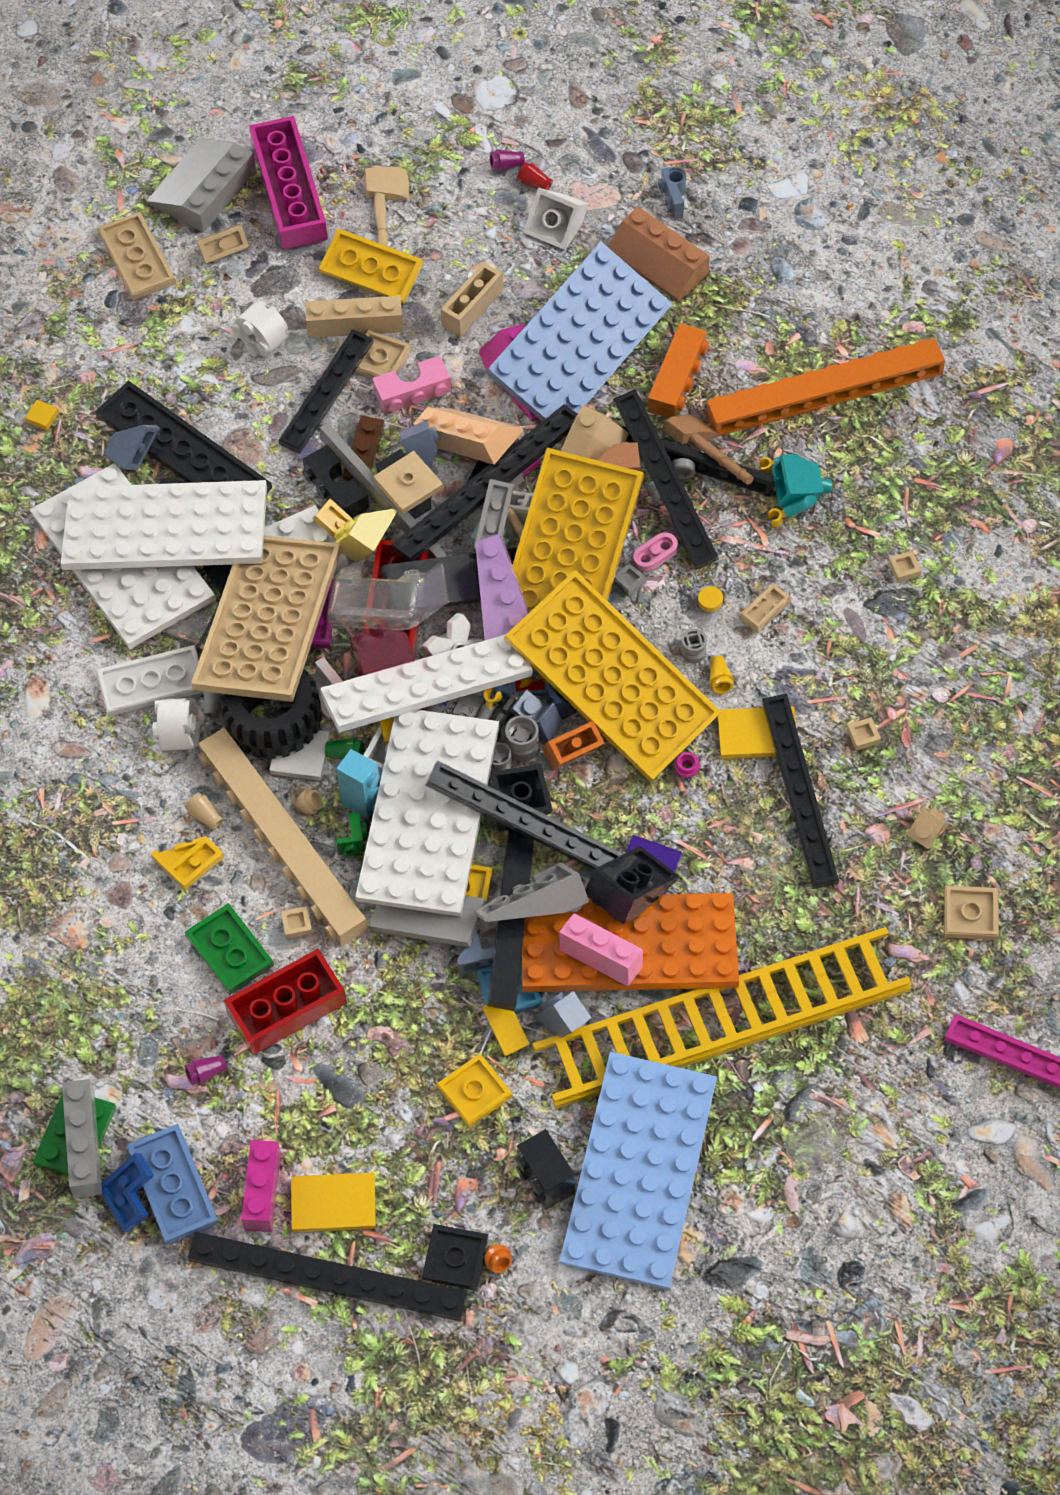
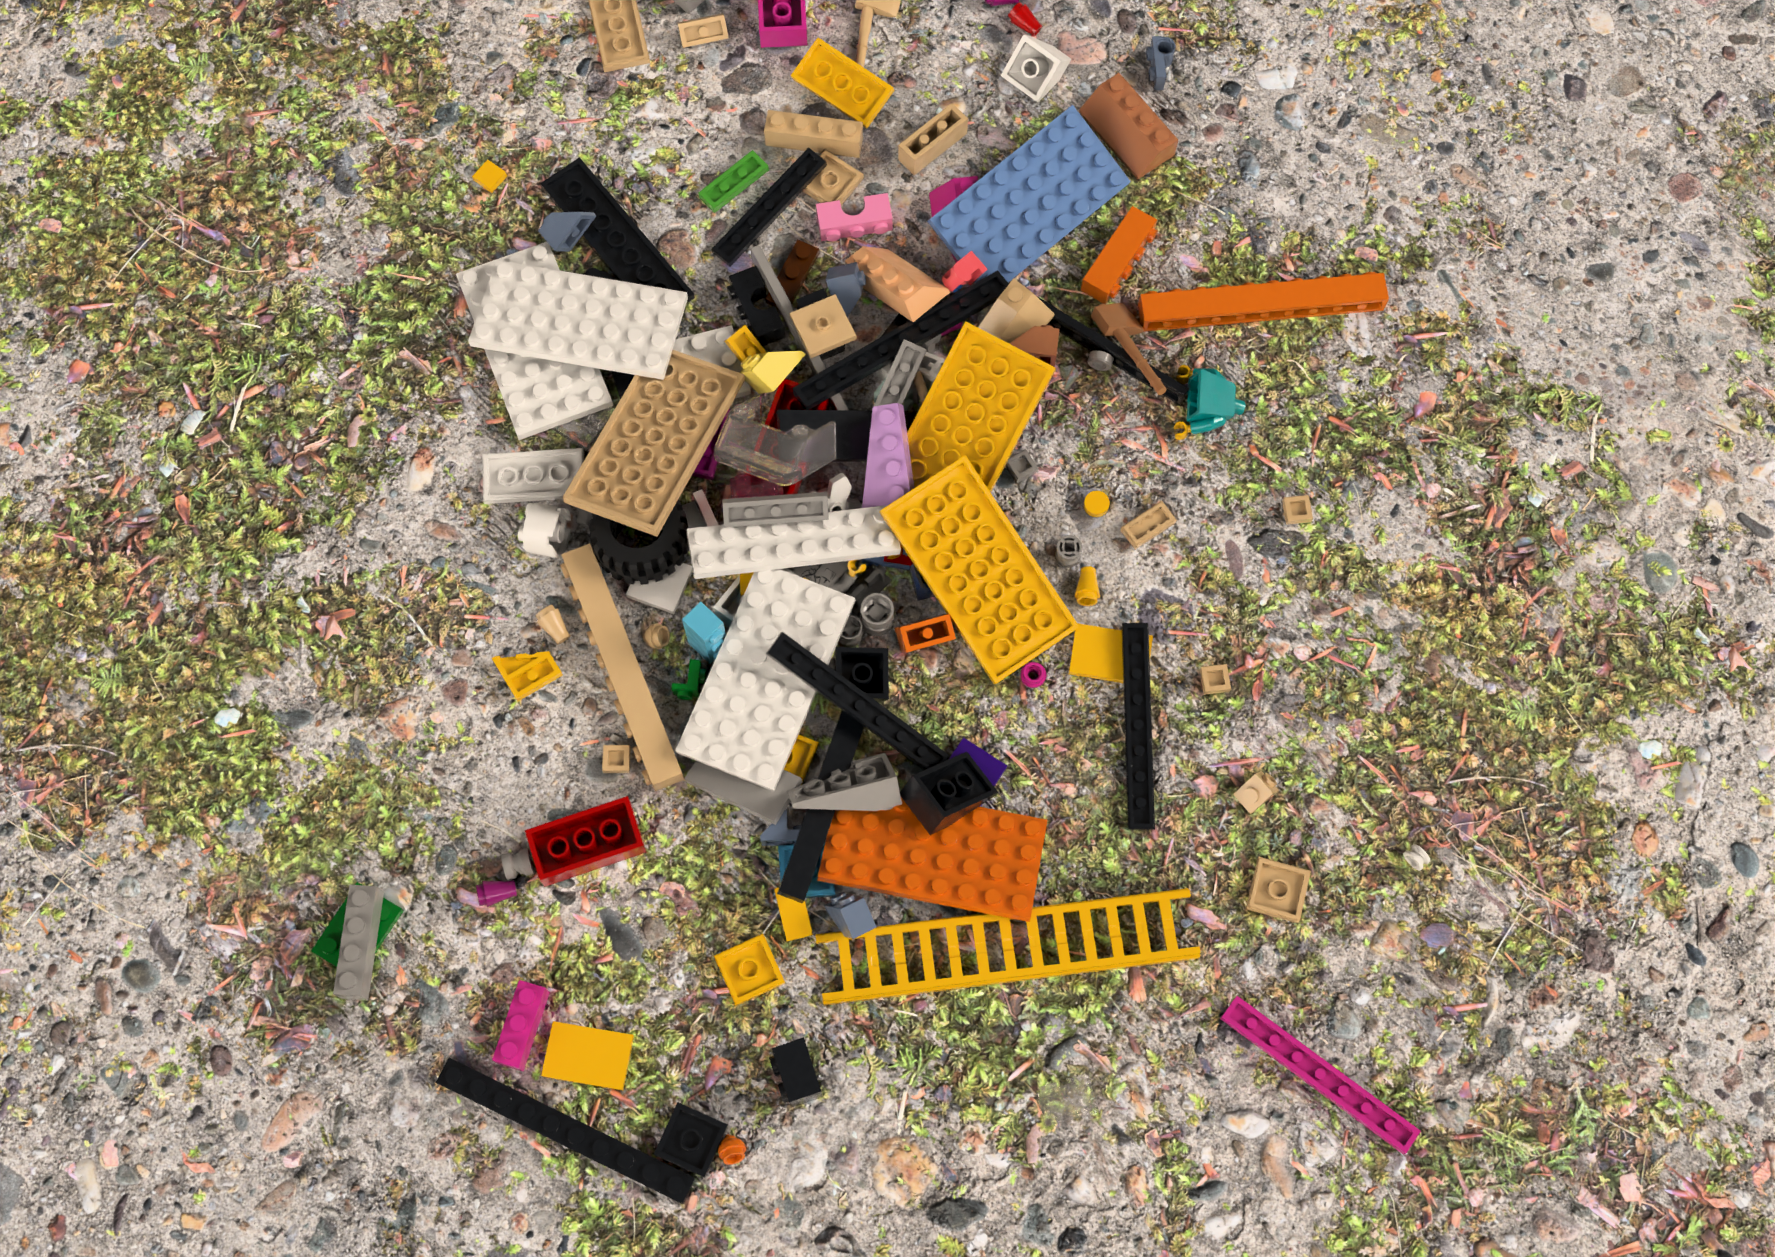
camera: 10 degrees right, 10 degrees up
(121, 1188) = (386, 1003): blue plate -> none
(176, 1188) = (437, 1003): medium blue plate -> none
(221, 1038) = (520, 863): none -> light grey wheel
(229, 948) = (545, 772): green plate -> none
(260, 329) = (718, 130): white brick -> none
(285, 374) = (733, 181): none -> bright green plate
(339, 748) = (704, 589): green cone -> none
(403, 652) = (775, 509): none -> light grey plate
(532, 410) = (964, 271): none -> coral leg
(544, 715) = (904, 597): sand blue slope -> none
(601, 949) = (901, 859): bright pink brick -> none
(638, 1171) = (888, 1090): light blue plate -> none
(654, 553) = (1051, 442): bright pink plate -> none
(666, 479) = (1080, 370): black plate -> none

